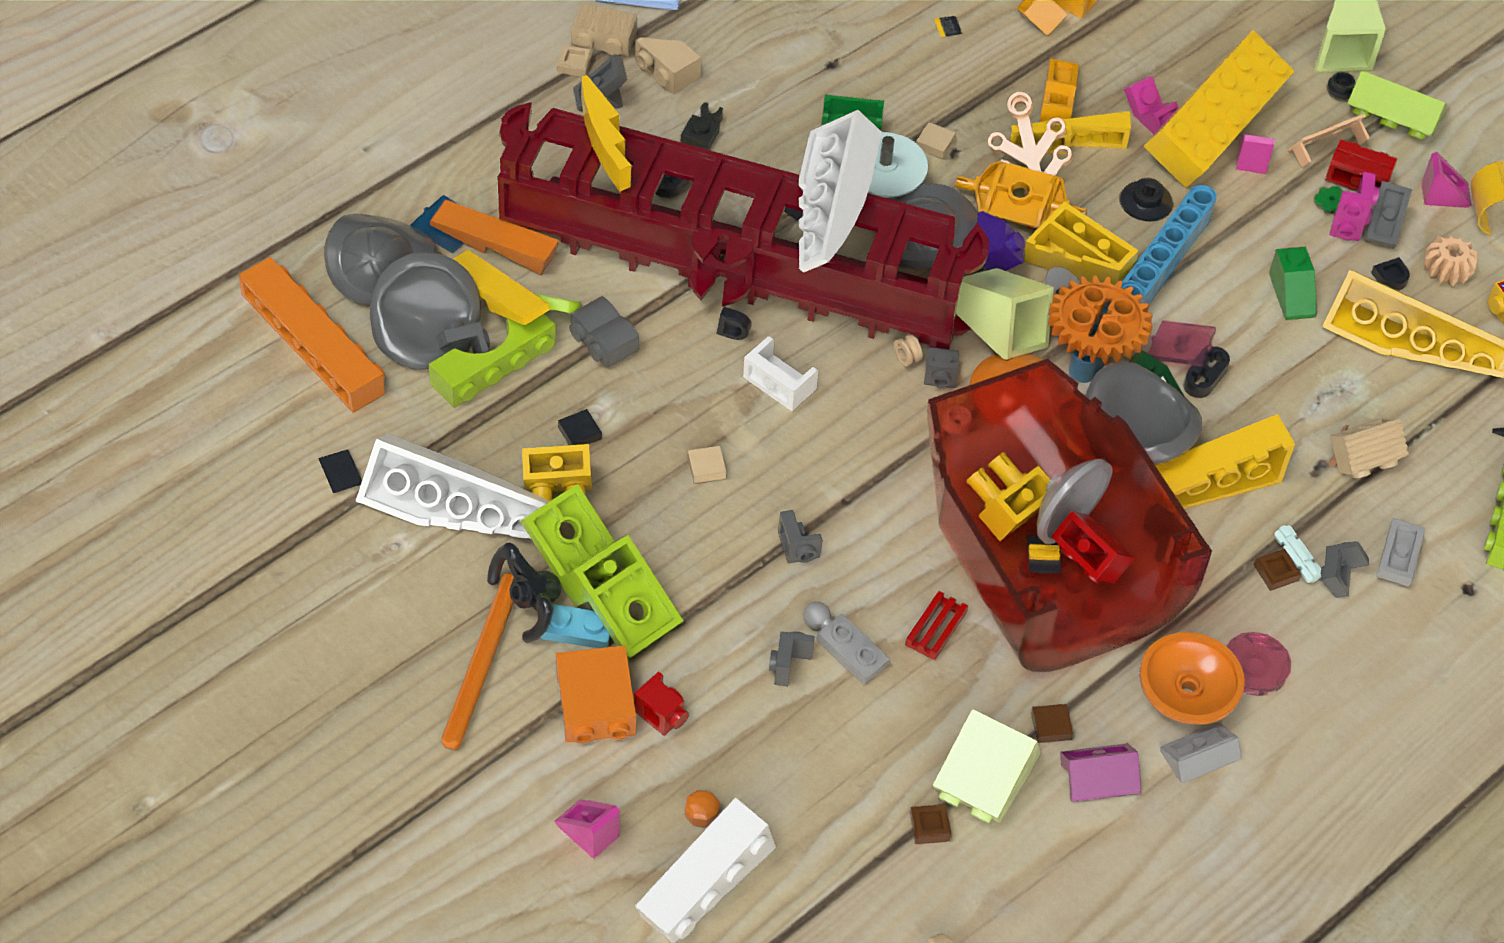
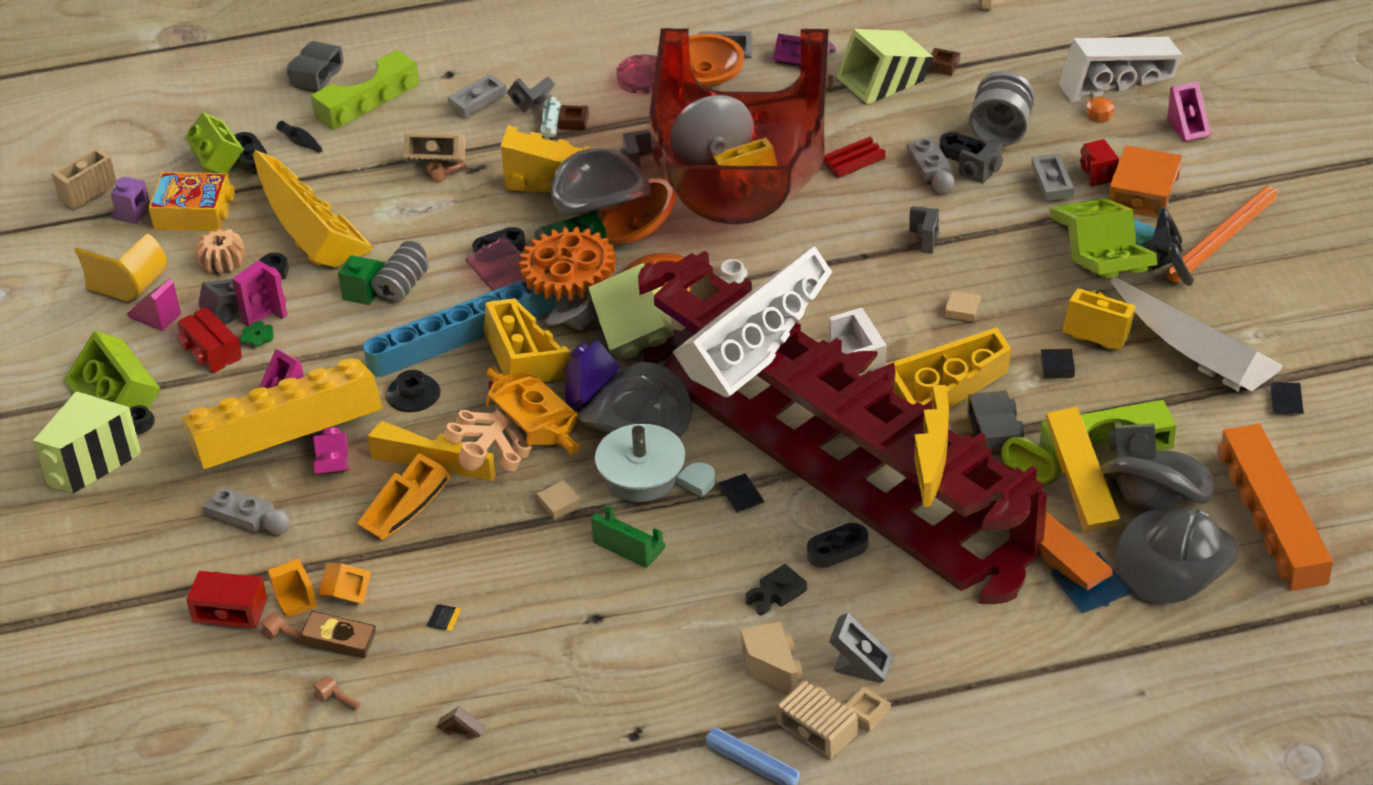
camera: 145 degrees left, 10 degrees down
(673, 353) = (960, 365): none -> yellow wedge
(702, 668) = (1052, 177): none -> light grey plate
(804, 721) = (1002, 108): none -> light grey wheel
(823, 681) = (954, 143): none -> black beam
(1174, 43) = (246, 511): none -> light grey plate
(1261, 290) = (401, 272): none -> light grey piece
(1355, 124) = (206, 374): light nougat piece -> none

